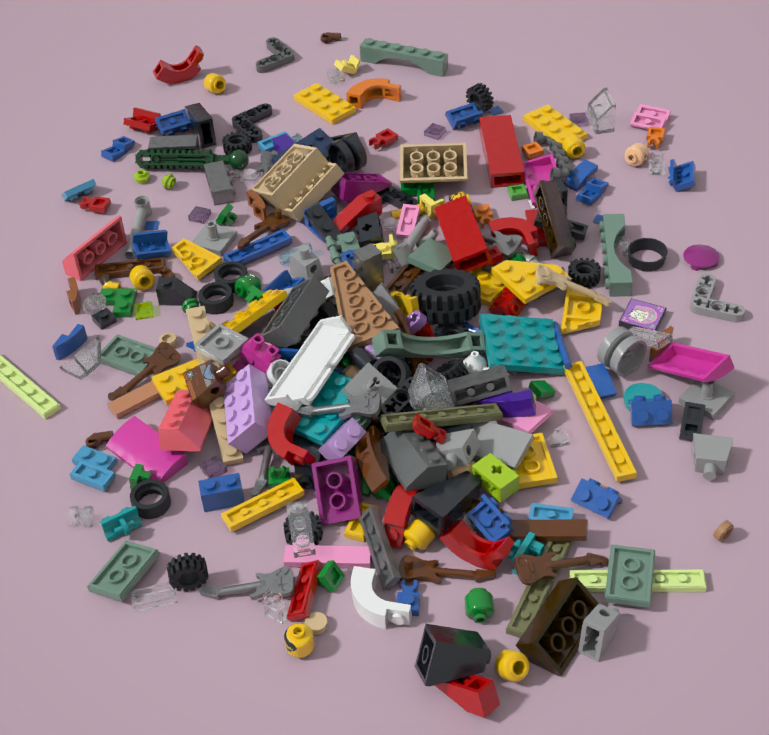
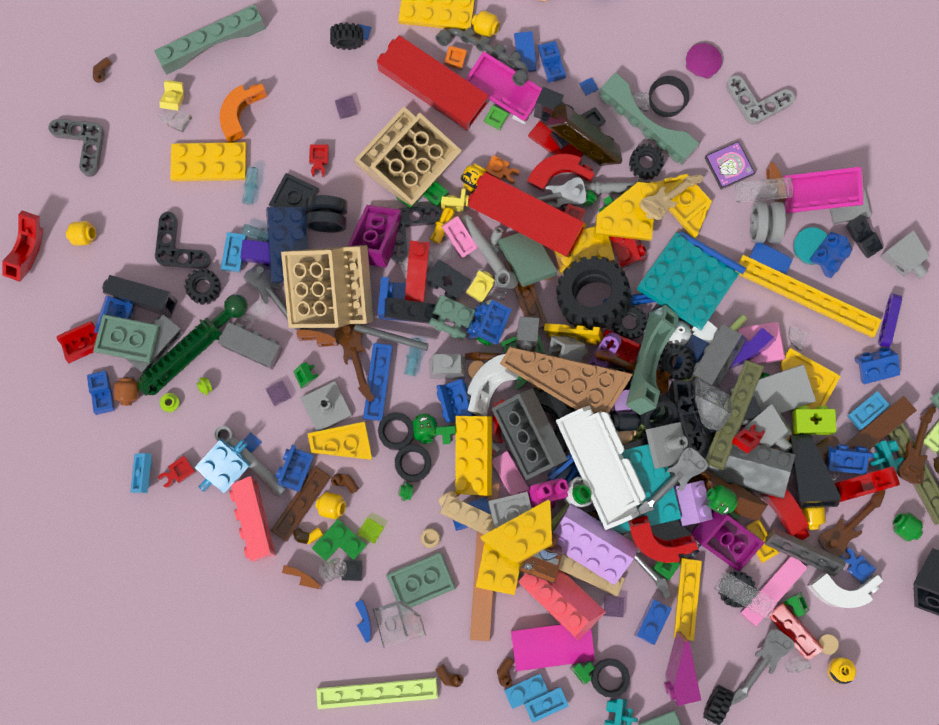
camera: 55 degrees left, 35 degrees up
(65, 411) = (449, 679): none -> reddish brown arm
(126, 208) = (222, 465): none -> plate
(127, 153) = (126, 391): none -> dark orange head
(162, 358) = (456, 560): reddish brown piece -> none
(163, 129) = (126, 338): none -> sand green tile
(173, 291) = (378, 491): black slope -> none
(194, 523) = (681, 674): none -> magenta slope
(211, 349) = (523, 535): none -> yellow wing
(276, 365) = (581, 494): none -> green plate
(295, 230) = (391, 337): none -> dark grey bar
(329, 124) = (250, 185): none -> clear light blue axle
(359, 442) = (721, 499): none -> green head
(463, 116) = (353, 68): blue bracket -> none
(542, 389) = (743, 306): green tile -> none
(652, 477) = (890, 320): none -> dark purple beam

